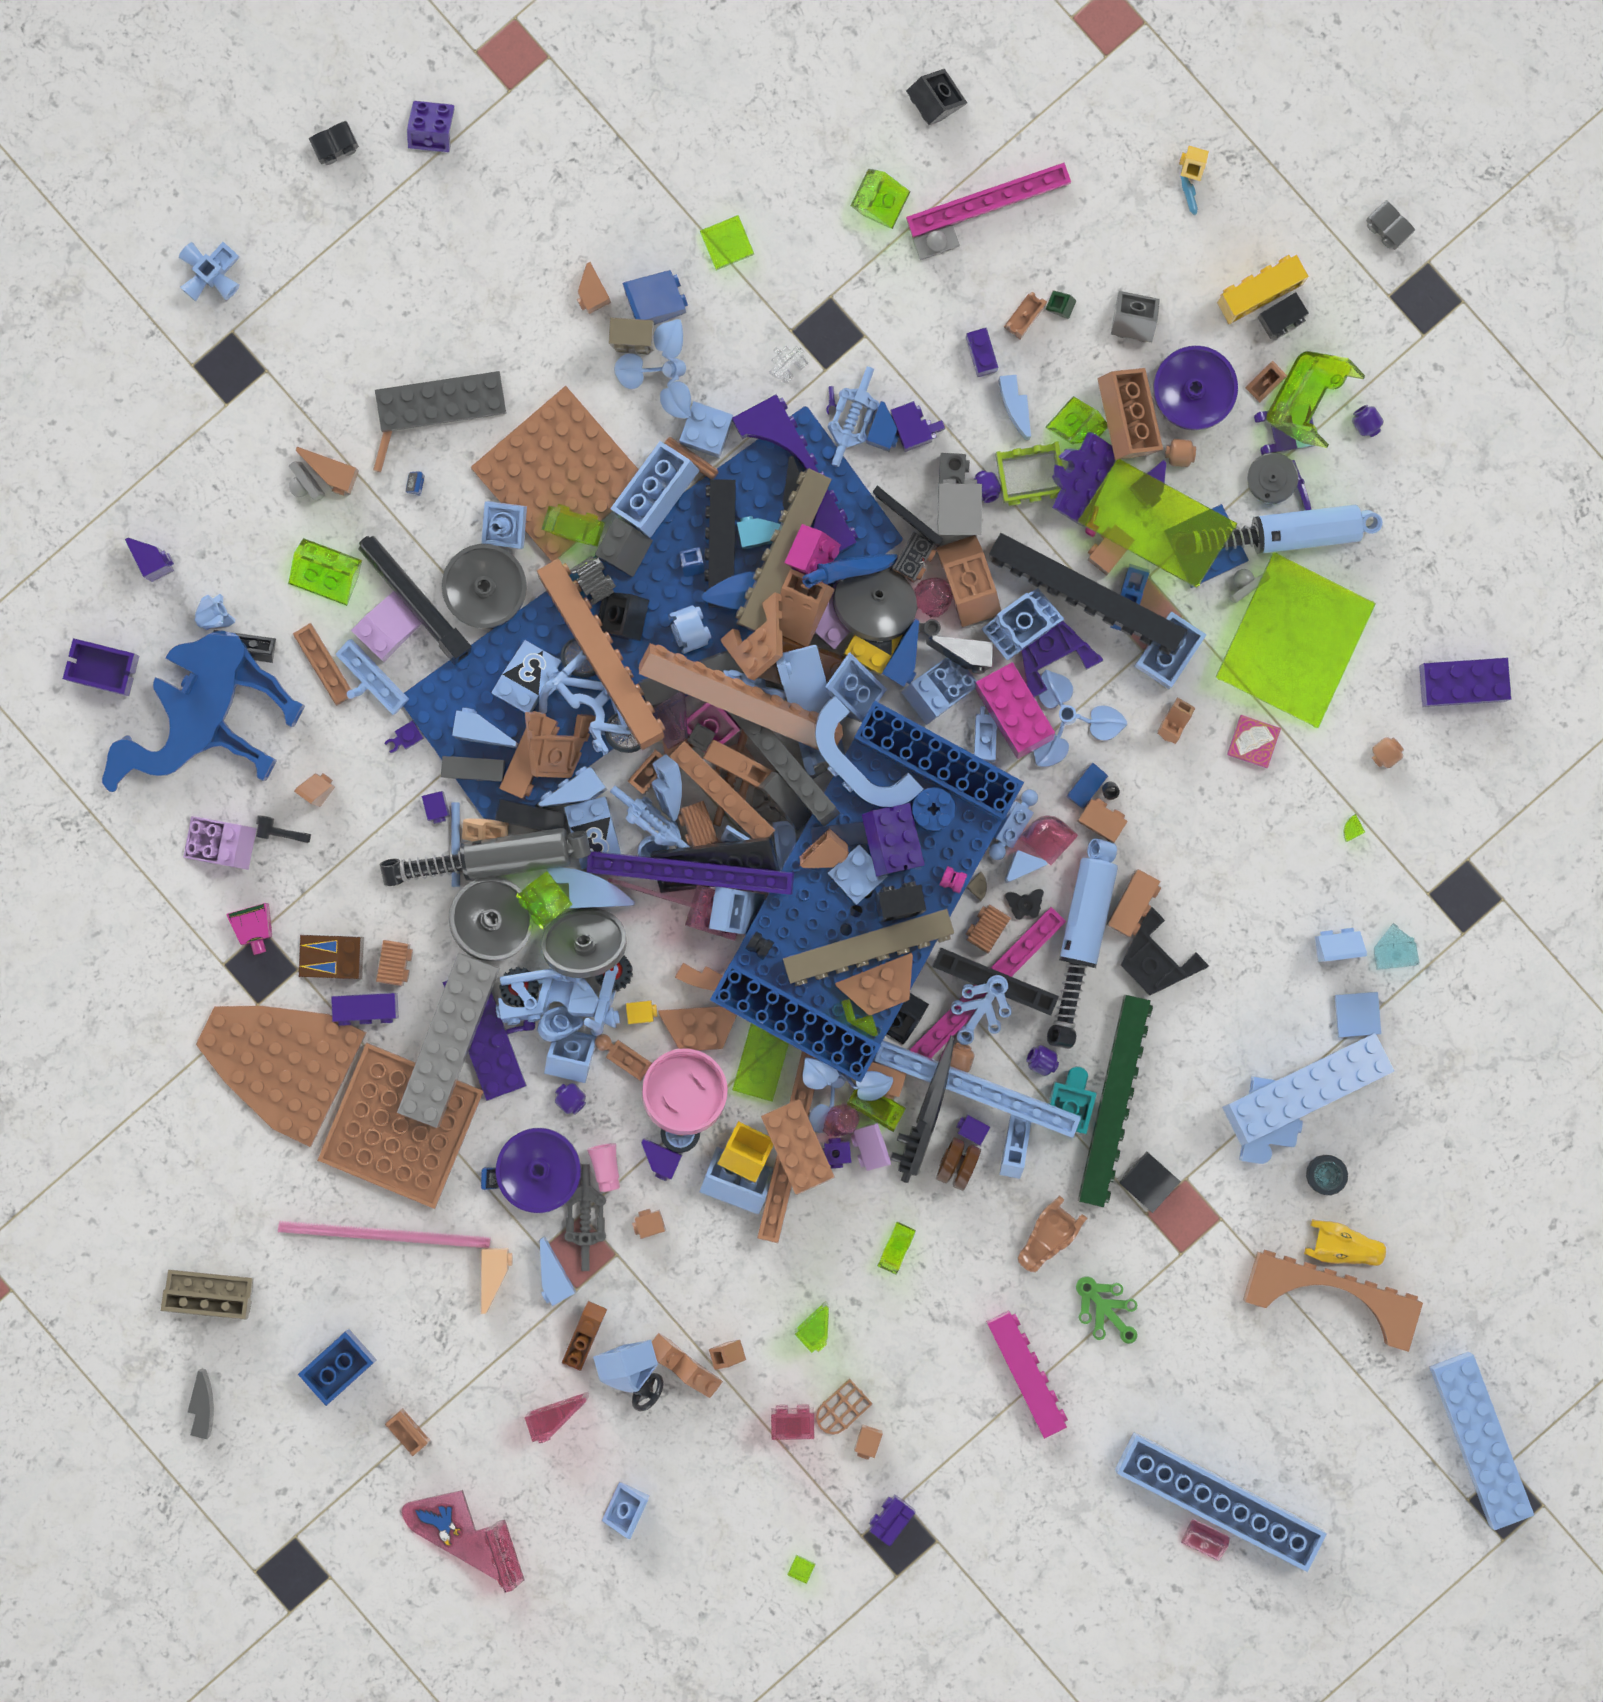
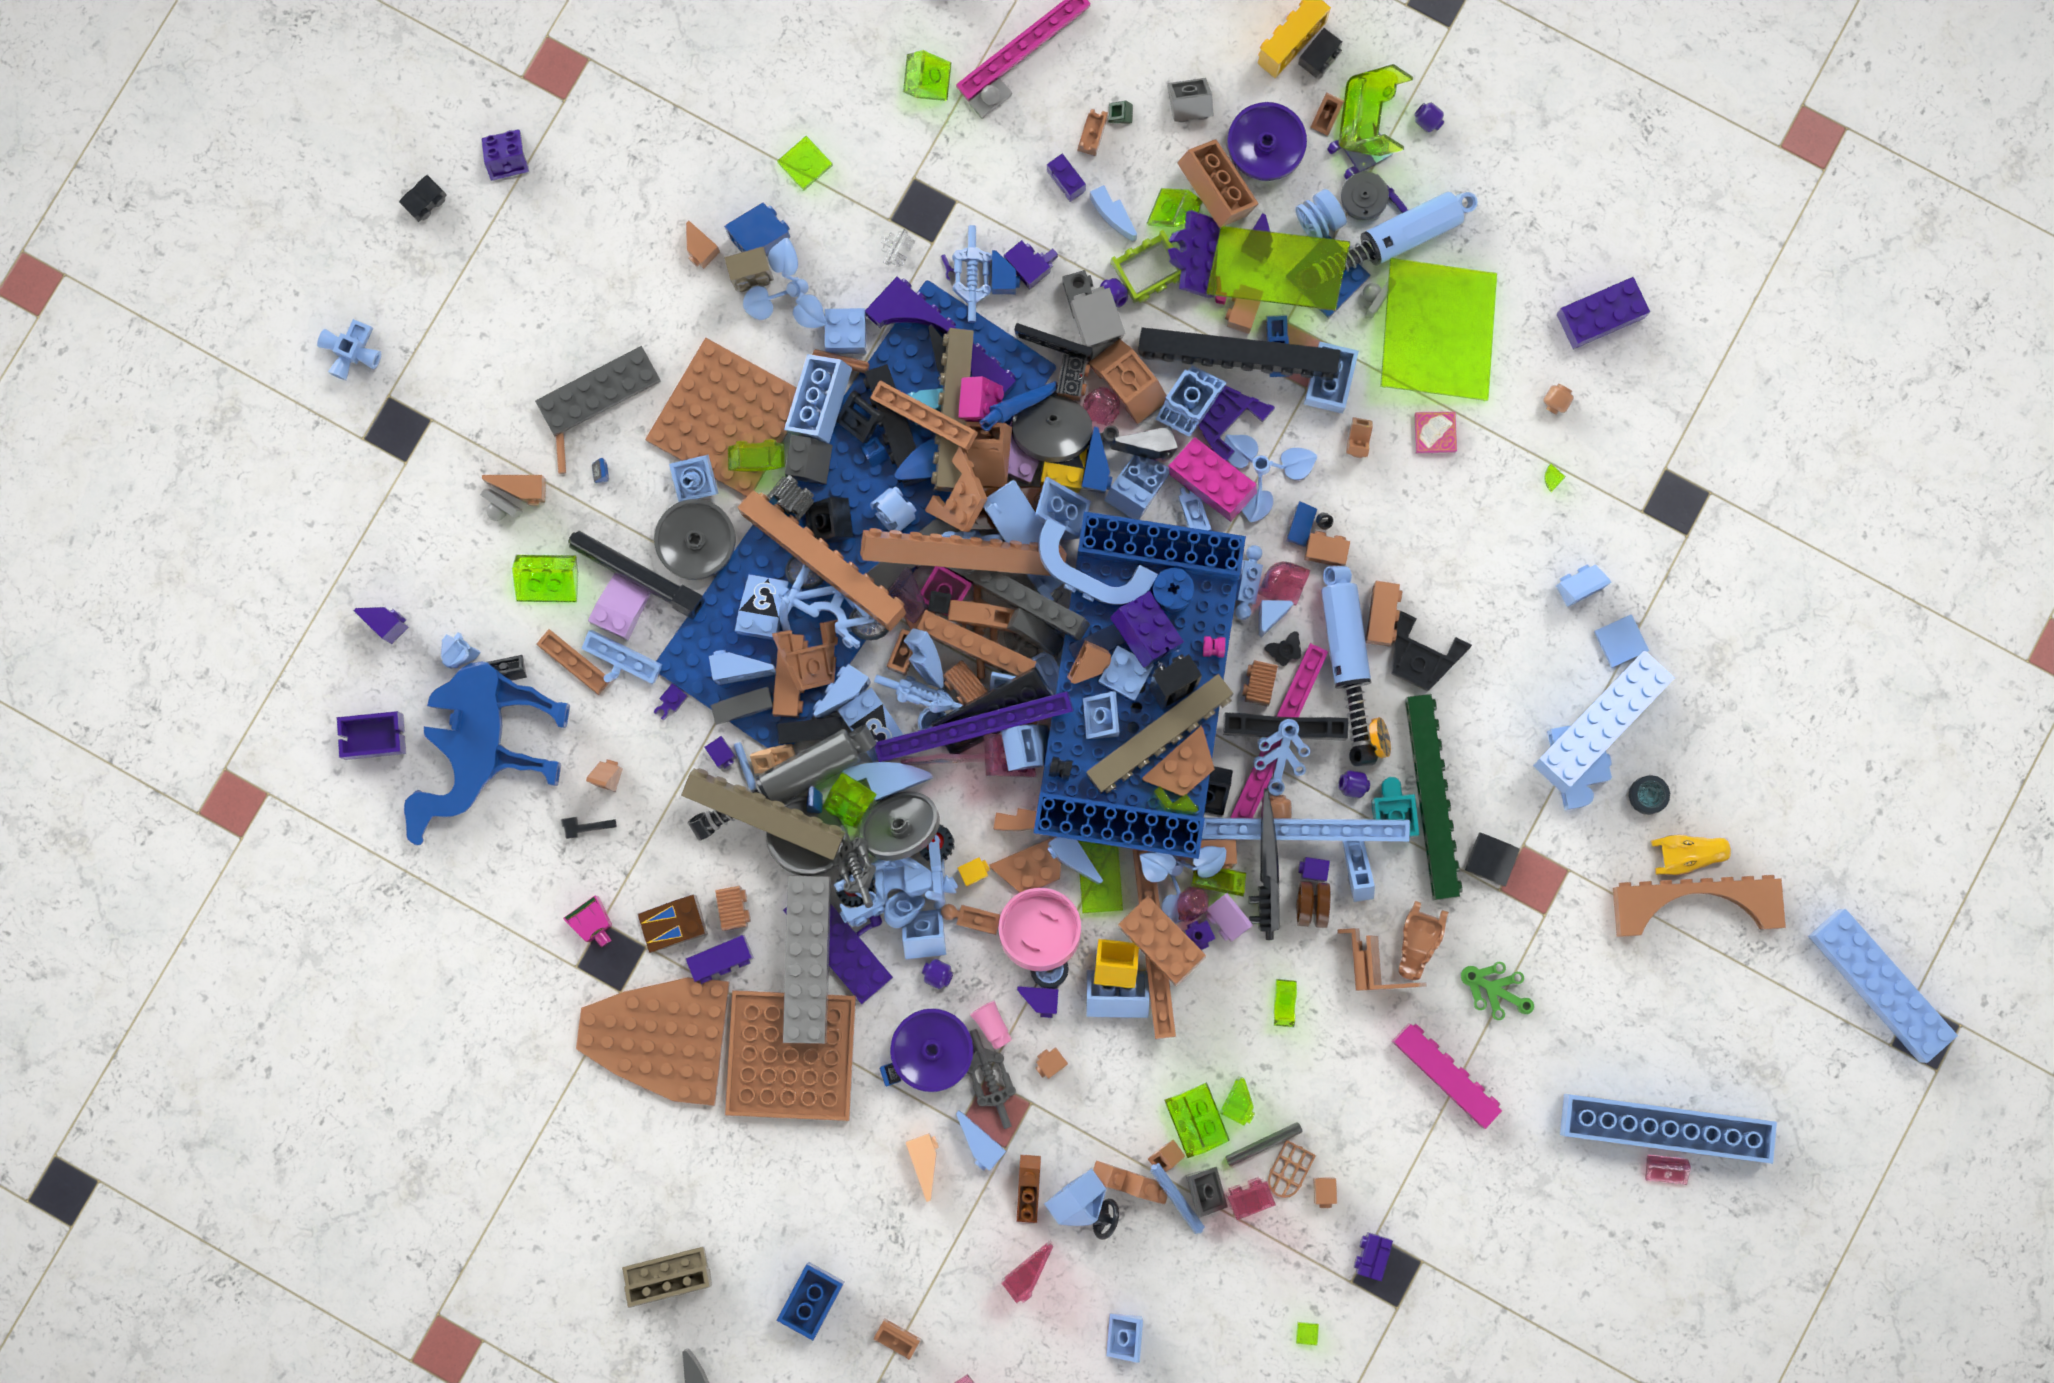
camera: 15 degrees left, 5 degrees down
(220, 842) = (535, 856): lavender slope -> none
(384, 1235) = (810, 1162): bright pink axle -> none
(455, 883) = (763, 813): none -> dark tan brick
(510, 887) = (814, 800): none -> blue slope
(524, 953) = (849, 855): none -> dark grey bar
(683, 526) = (855, 421): none -> black plate
(725, 1403) = (1177, 1197): none -> light blue axle
(744, 1035) = (1072, 855): none -> light blue slope
(751, 547) = (924, 415): none -> nougat plate
(754, 1400) = (1206, 1191): none -> dark grey slope
(770, 1329) = (1197, 1120): none -> clear neon green slope
(817, 908) = (1101, 716): none -> light blue slope
(826, 1375) = (1263, 1144): none -> dark grey axle
(978, 886) = (1237, 649): dark tan tile -> none
(990, 1242) = (1367, 963): none -> nougat piece
(1084, 1025) = (1380, 737): none -> tile
(1180, 453) = (1275, 203): nougat head -> none
(1220, 483) = (1321, 215): none -> light blue wheel
(1395, 950) = (1633, 571): clear light blue slope -> none

